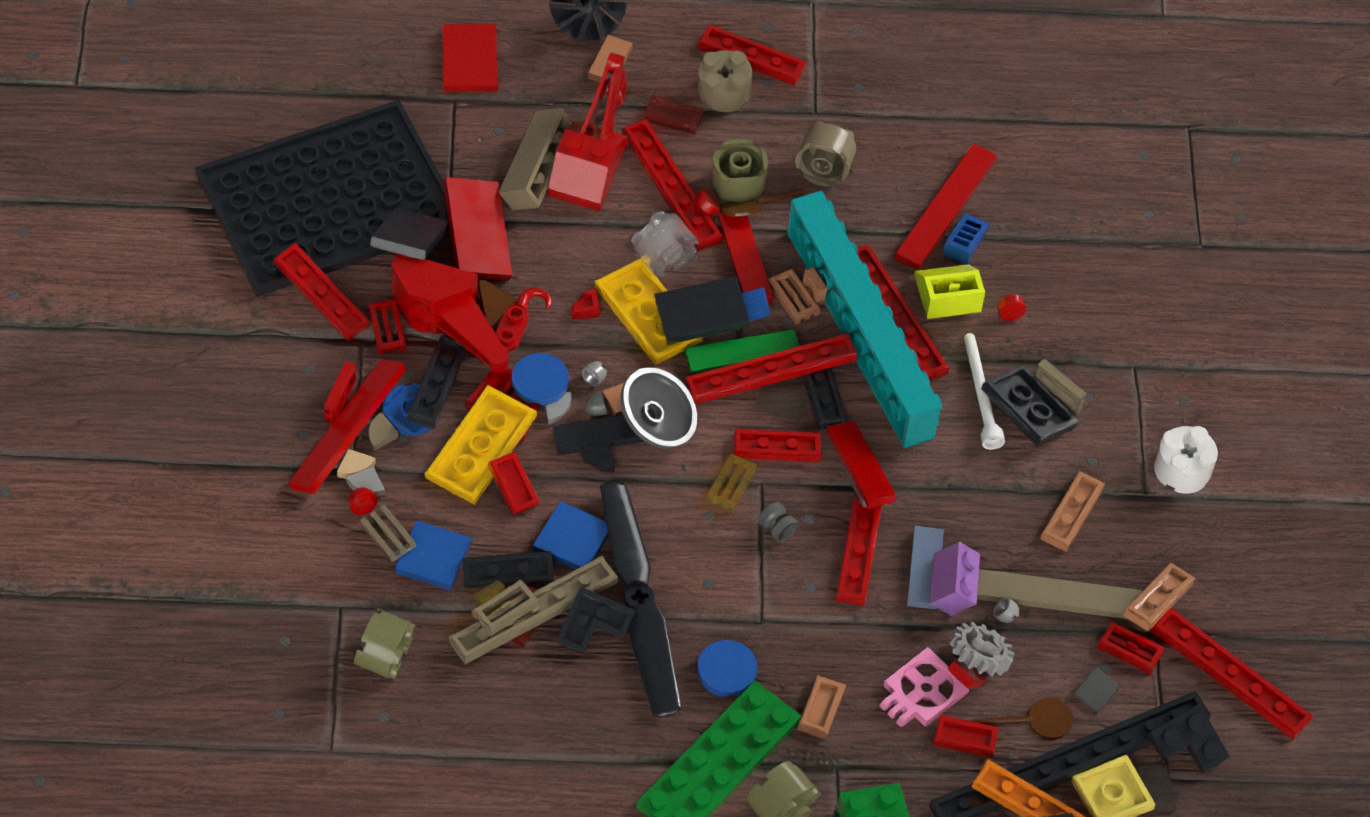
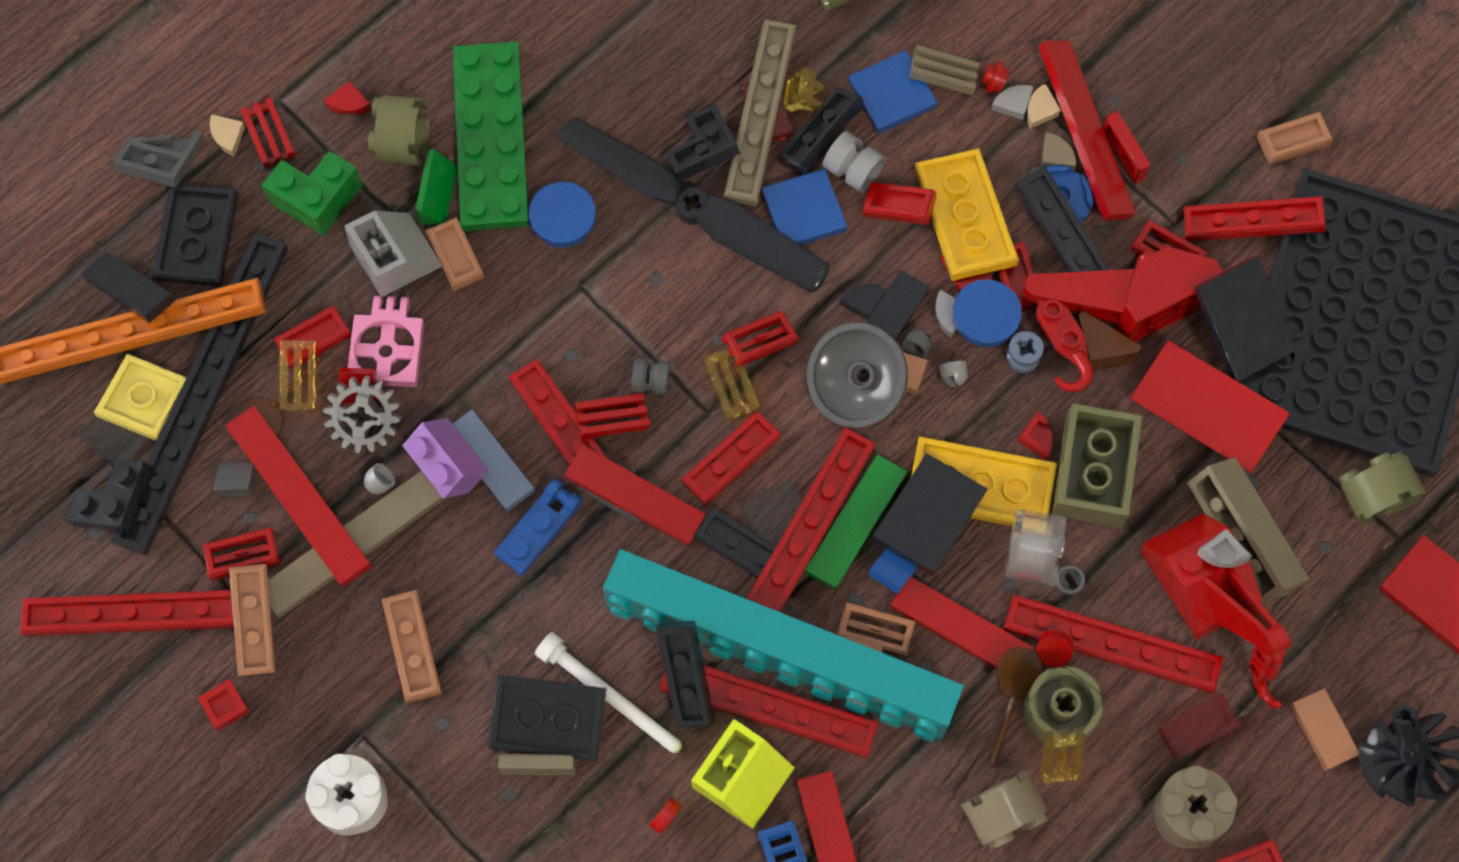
camera: 140 degrees right, 15 degrees up
(231, 317) = (1294, 138): none -> nougat tile
(442, 111) = (1382, 488): none -> olive brick
(492, 628) = (775, 105): dark tan tile -> none
(513, 526) = (850, 159): none -> light grey wheel
(538, 338) = (1022, 360): none -> sand blue wheel
(578, 135) = (1224, 551): none -> light grey tile
(579, 253) = (1097, 465): none -> olive brick
(686, 490) = (737, 349): none -> red tile
(771, 148) = (1062, 741): none -> clear yellow tile
(798, 752) = (435, 189): none -> green slope
(828, 518) = (635, 401): none -> red tile
(864, 732) = (391, 249): none -> light grey slope
(932, 344) = (685, 674): none -> black tile
(933, 506) = (538, 528): none -> blue plate
(1008, 701) = (297, 345): none -> clear yellow tile
(1066, 643) = (298, 496): none -> red tile
(1217, 569) = (223, 705): none -> red plate

